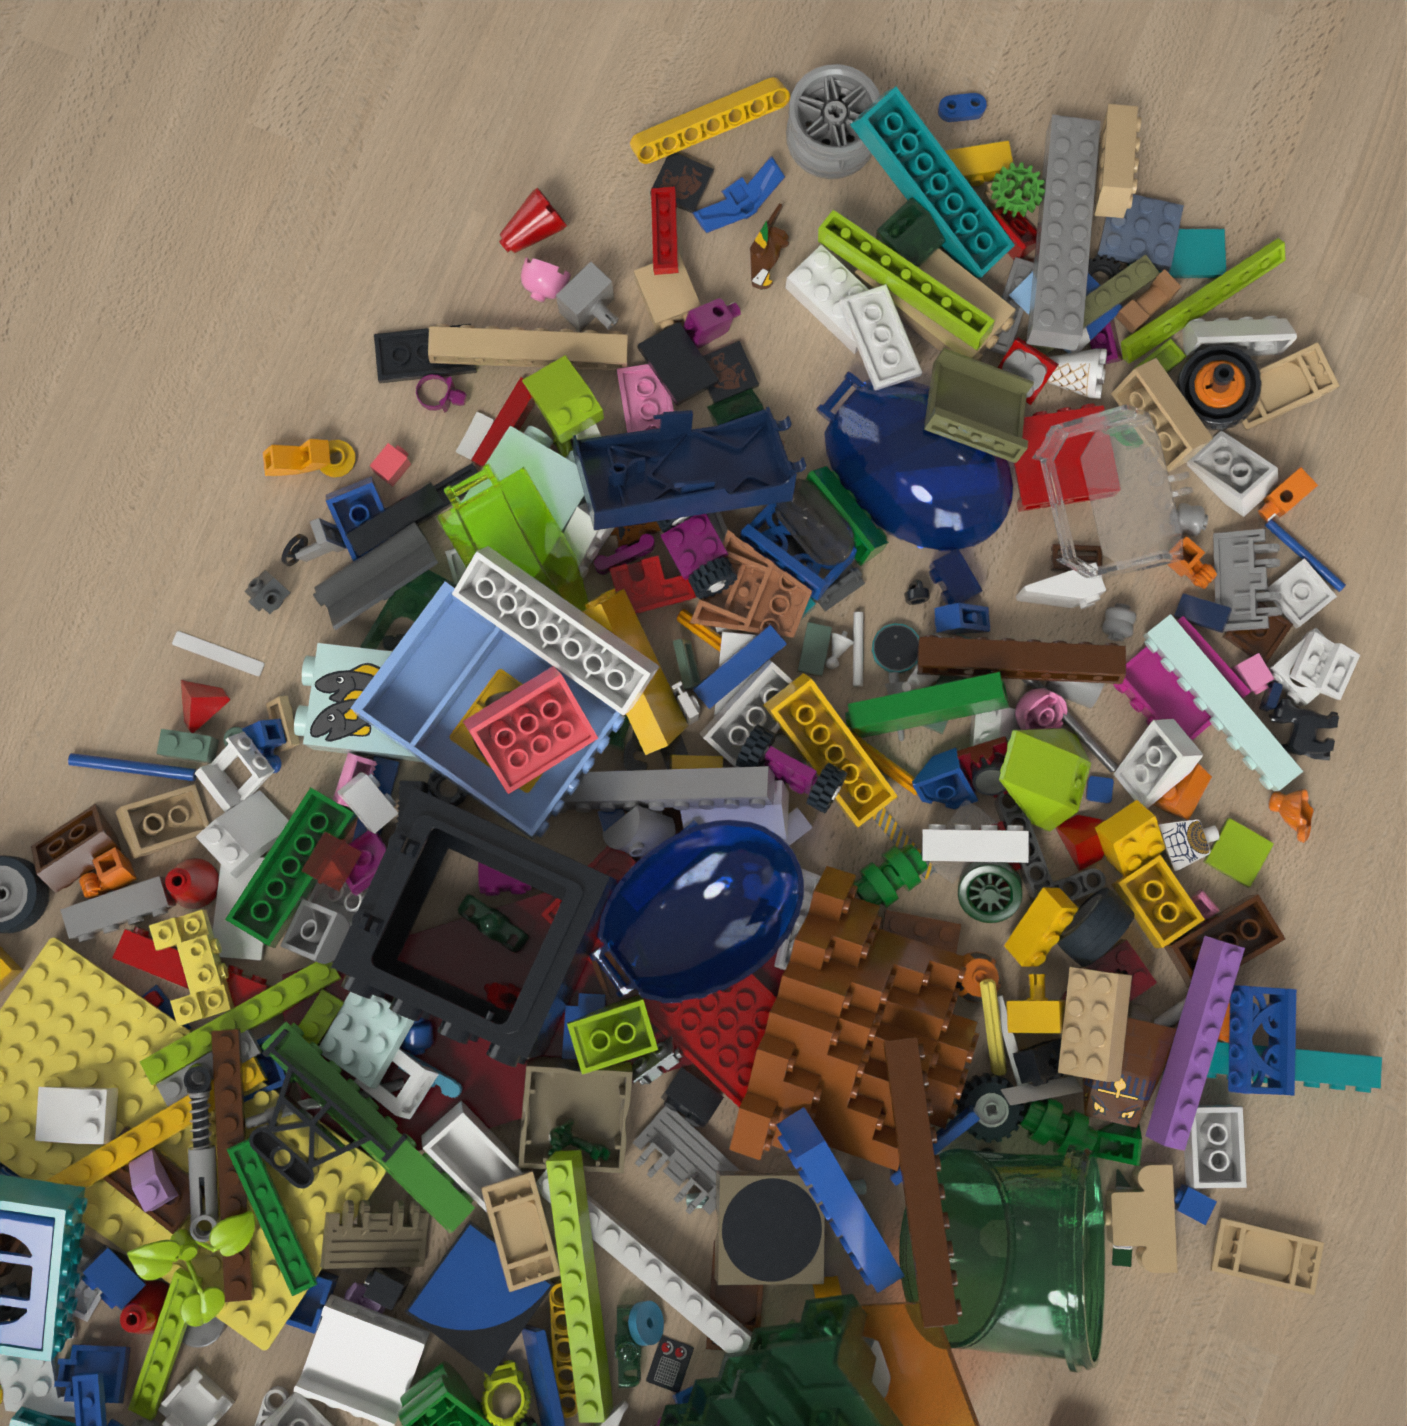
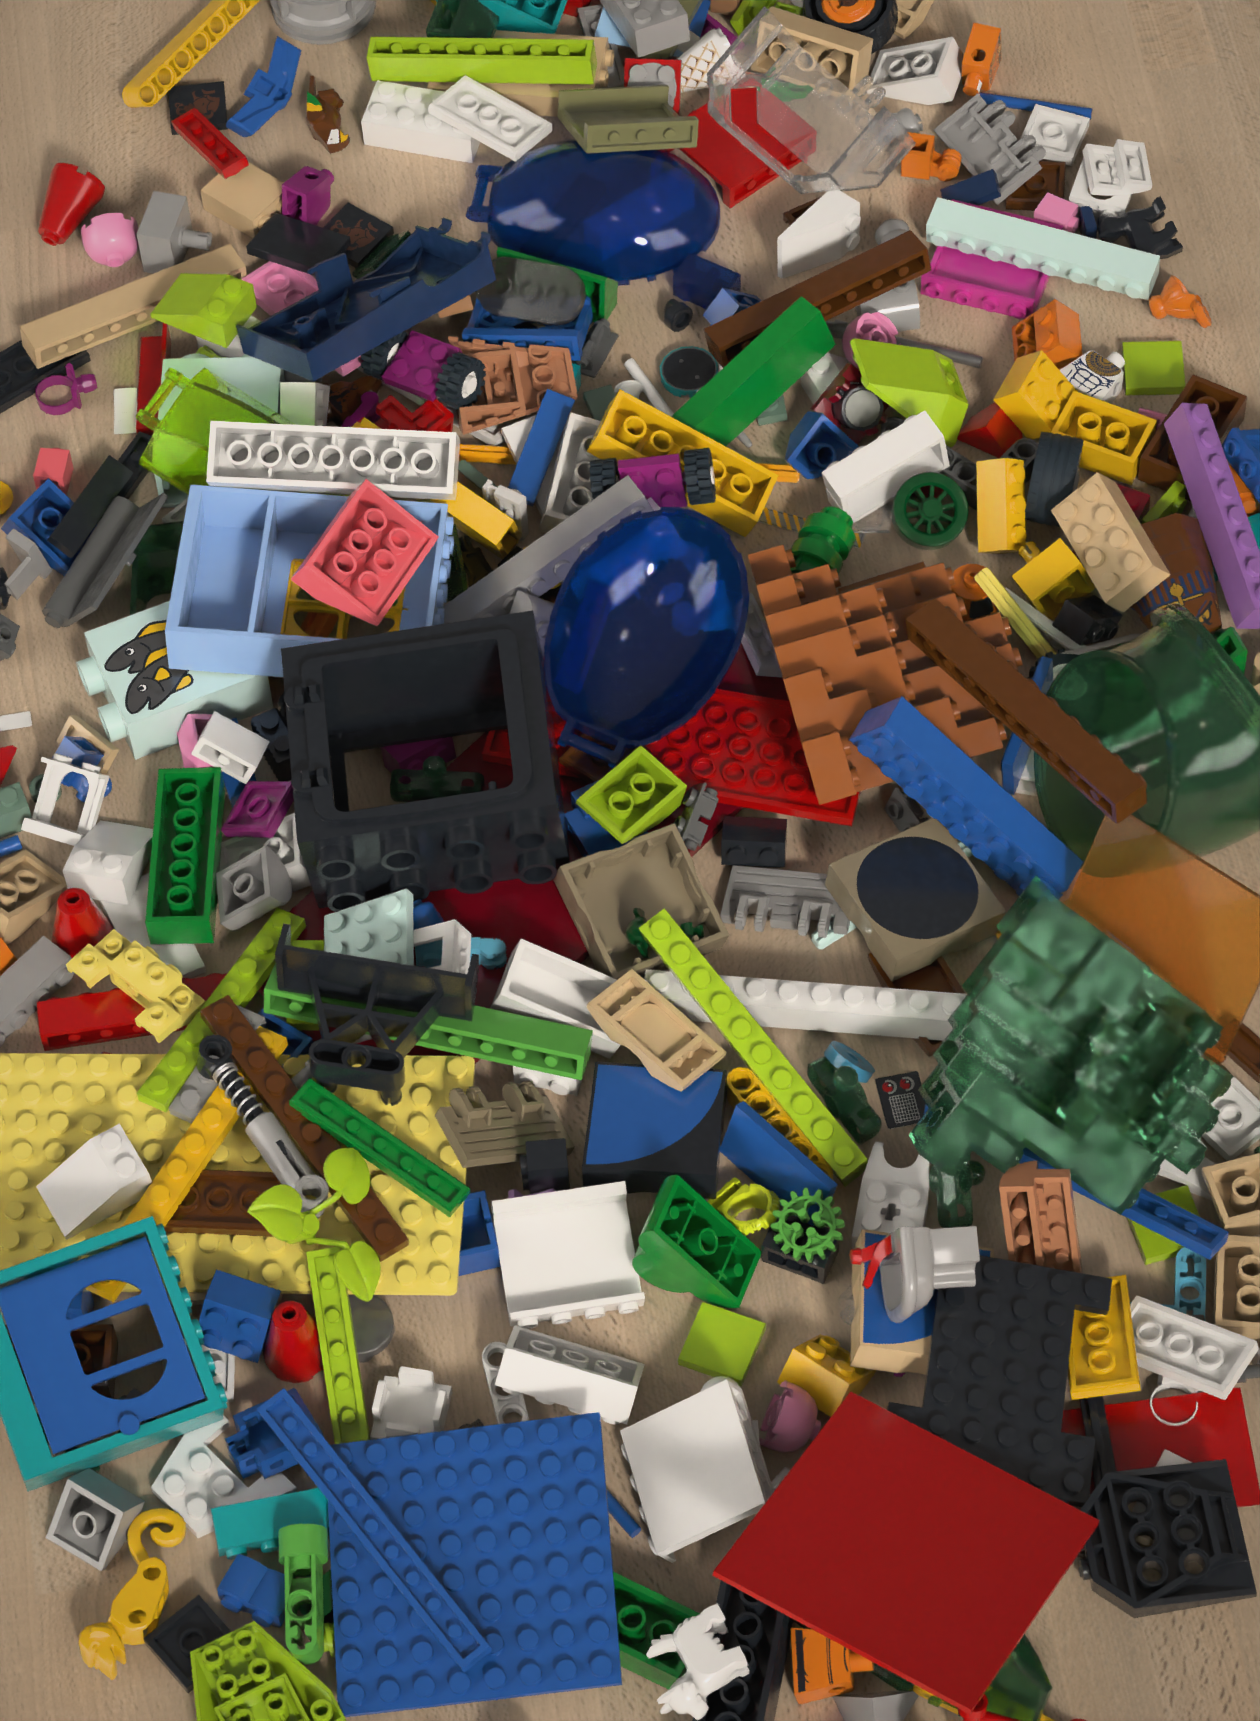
camera: 25 degrees left, 25 degrees down
(151, 1181) = (226, 1187): lavender slope -> none
(332, 861) = (226, 816): clear red piece -> none
(1099, 789) = (978, 386): blue piece -> none
(1157, 761) = (1013, 318): white slope -> none
(1172, 988) = (1171, 502): none -> lime plate

